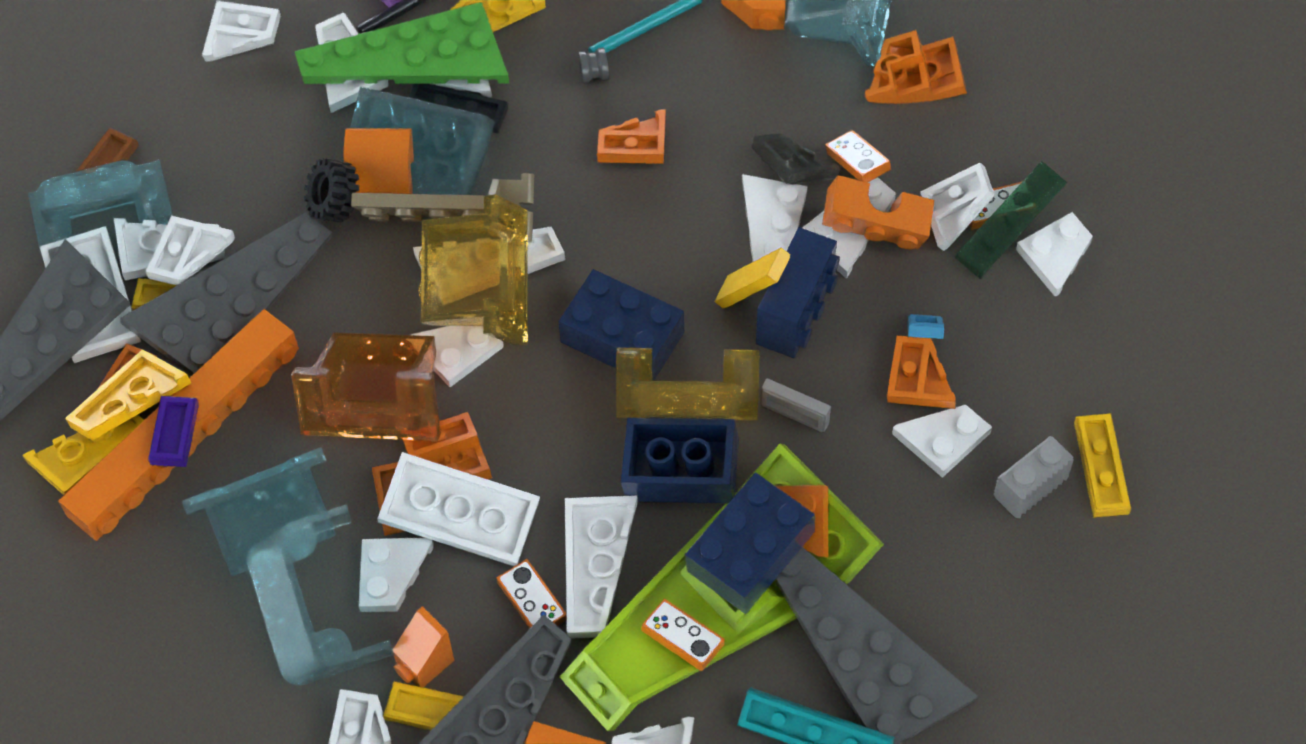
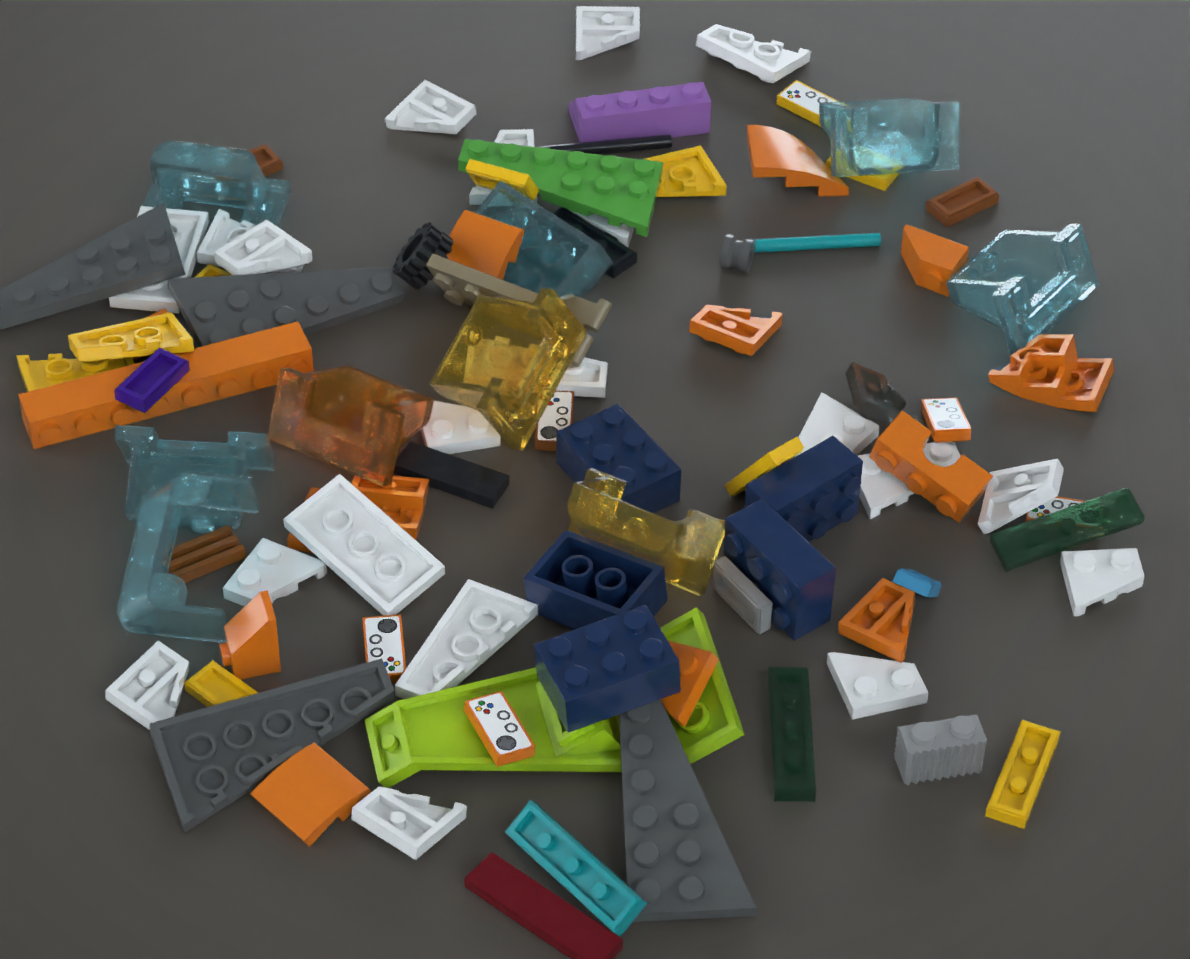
camera: 25 degrees right, 15 degrees down
(312, 566) = (201, 551): none -> dark orange tile
(351, 82) = (489, 176): none -> yellow tile
(486, 396) = (452, 474): none -> black tile
(542, 306) = (555, 417): none -> tile
(818, 368) = (781, 567): none -> dark blue brick
(906, 516) = (791, 734): none -> clear green tile

